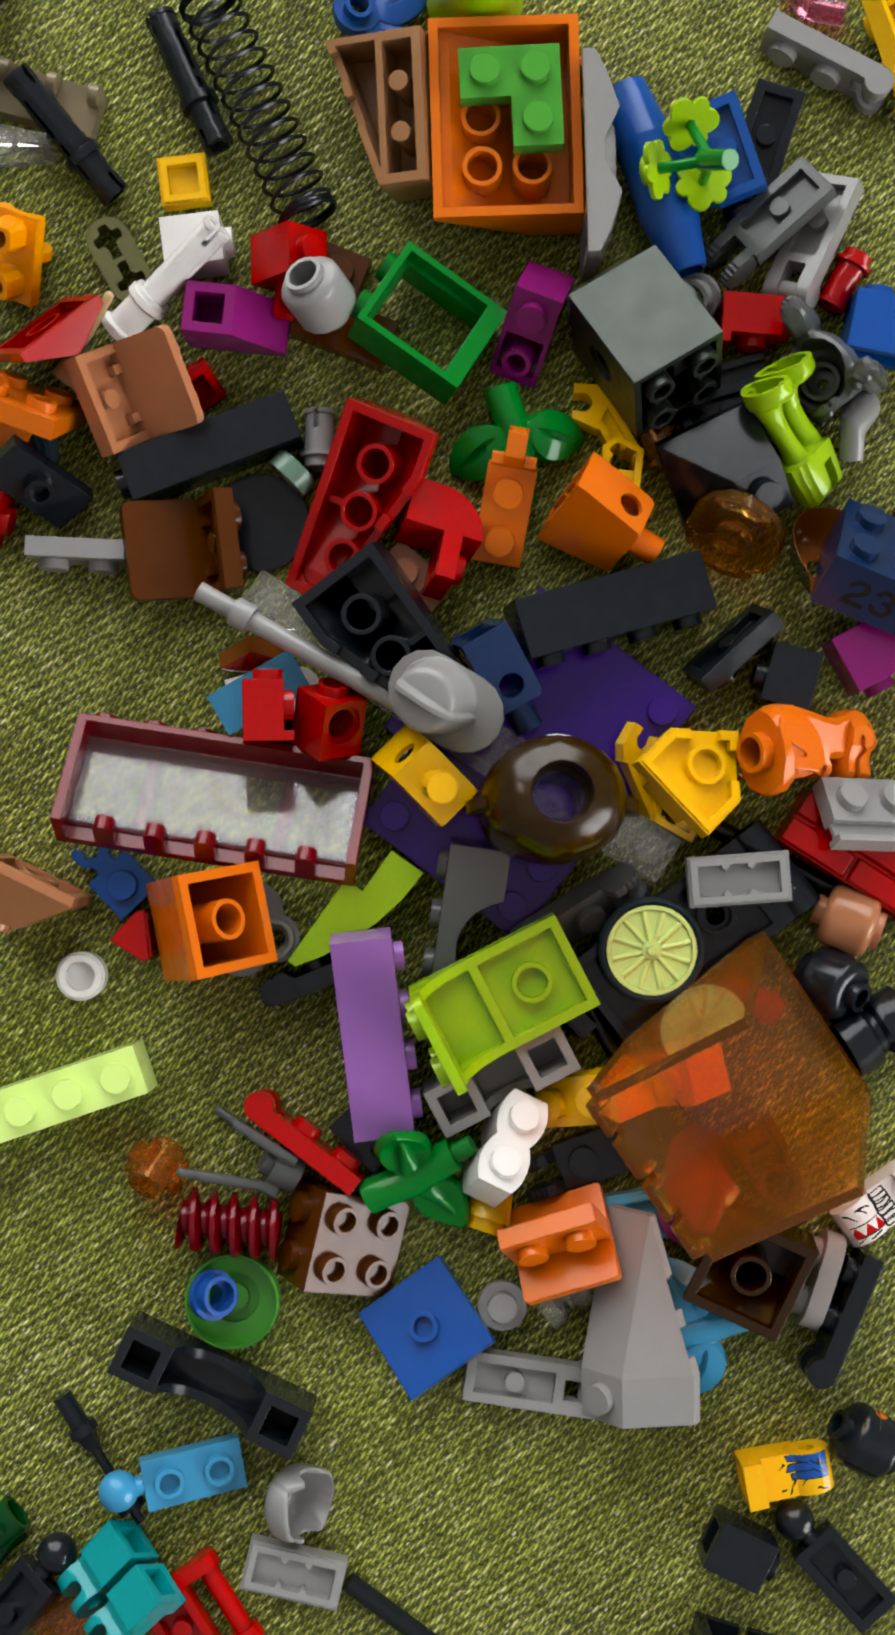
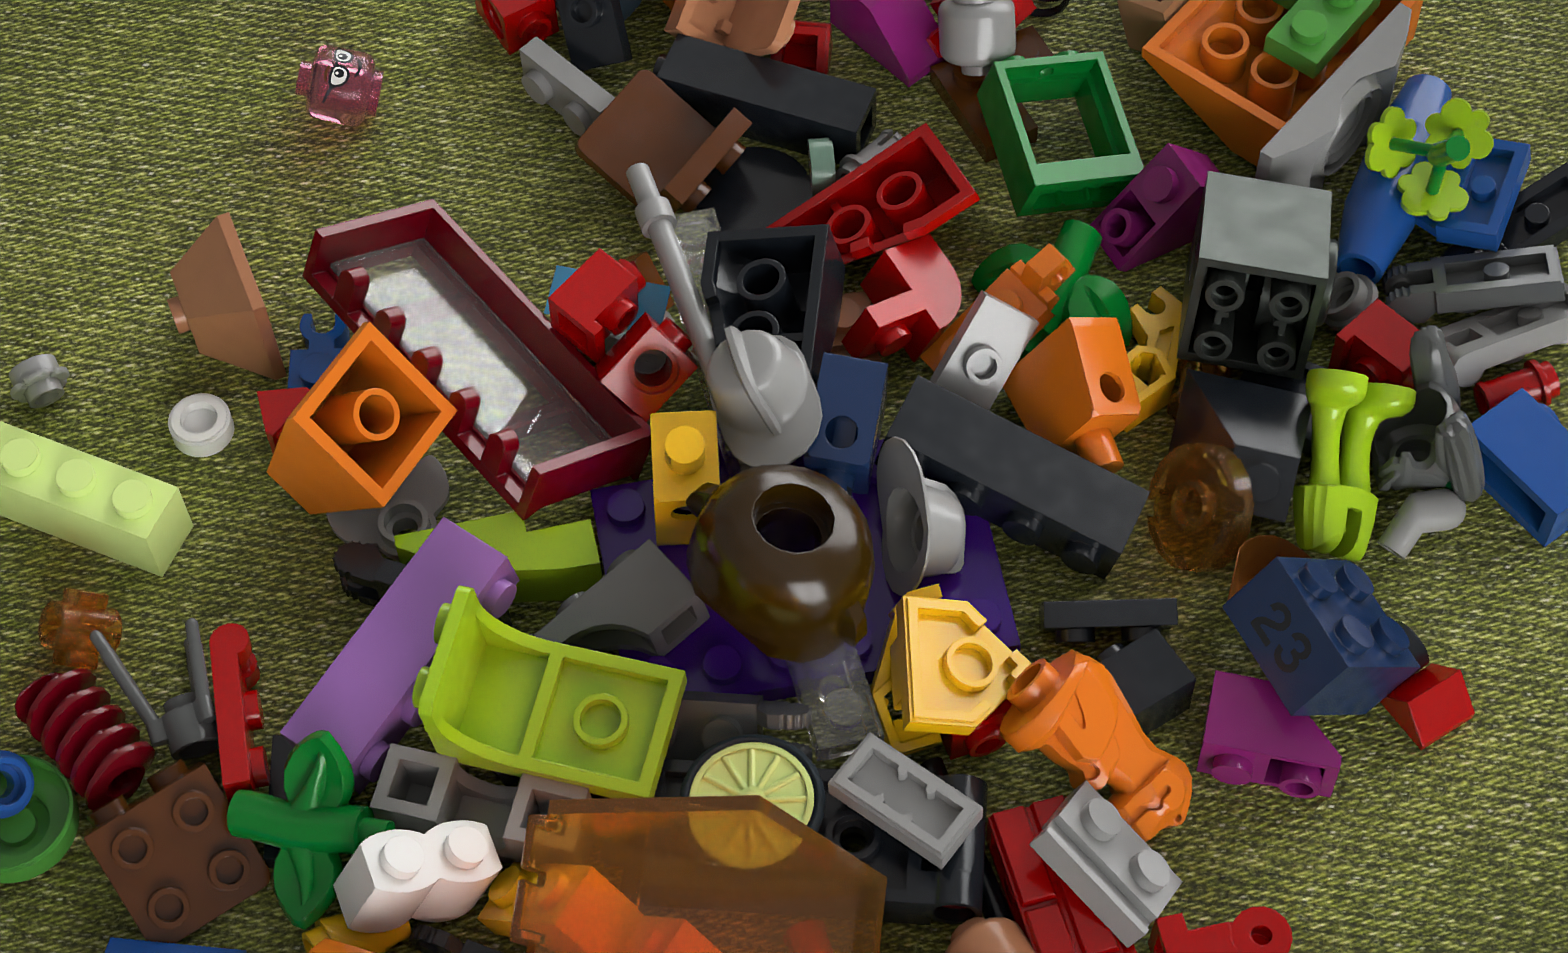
camera: 50 degrees right, 30 degrees down
(522, 541) = (984, 350): none -> light grey plate
(588, 692) = (919, 520): none -> light grey piece

